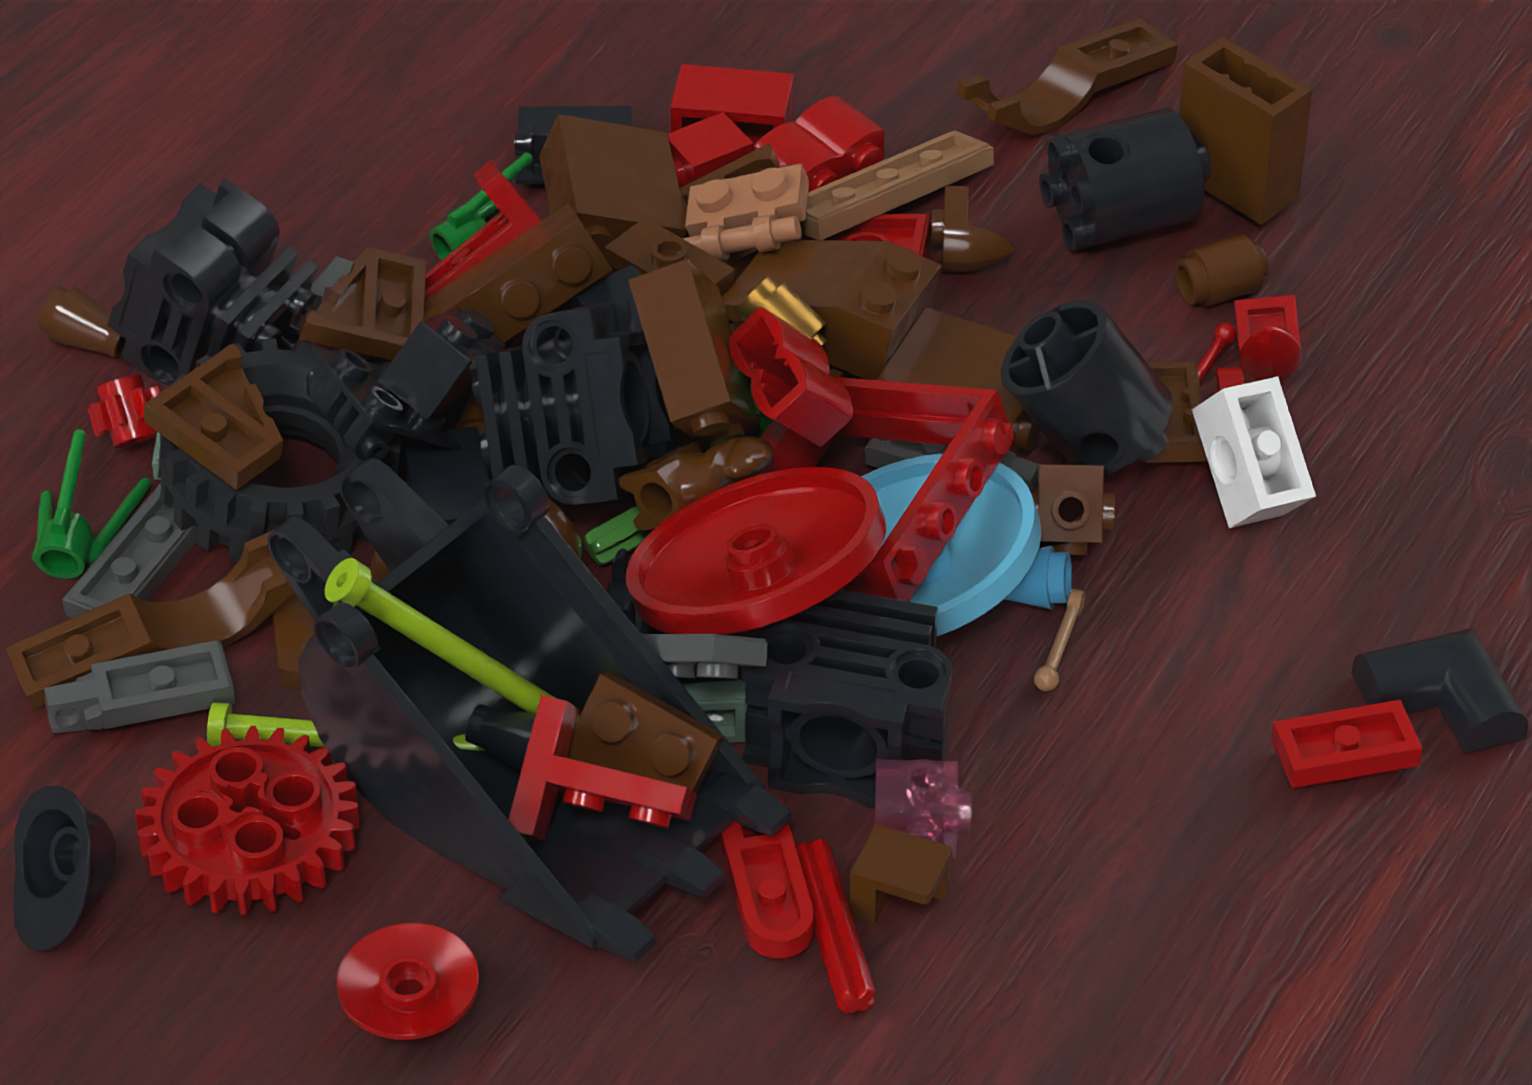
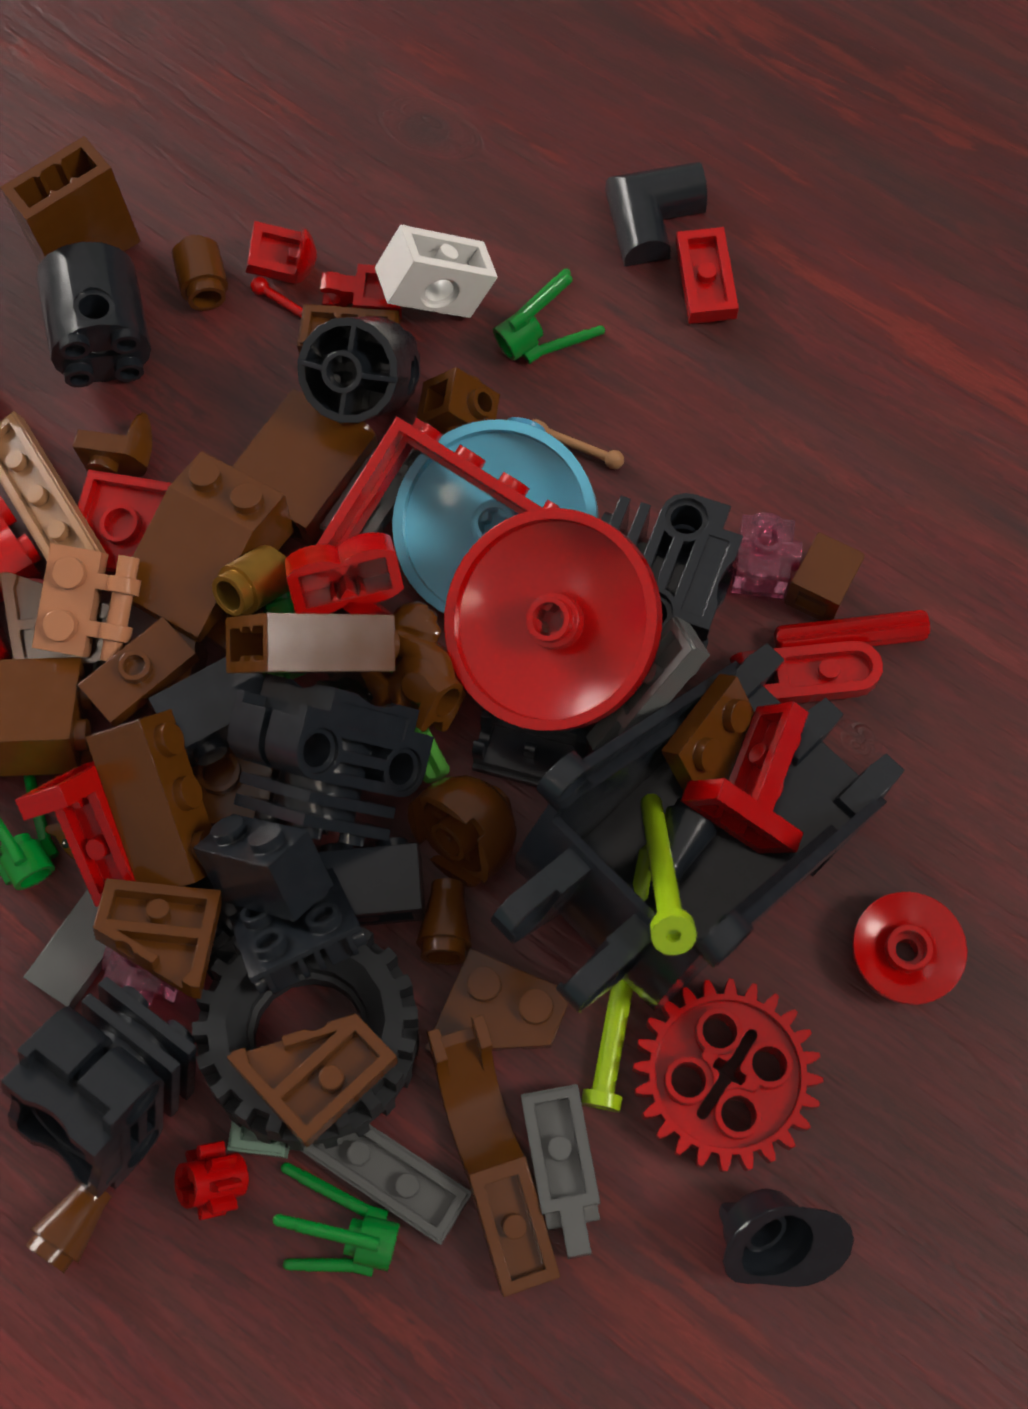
camera: 80 degrees left, 25 degrees up
(1211, 565) = (522, 330): none -> green plant

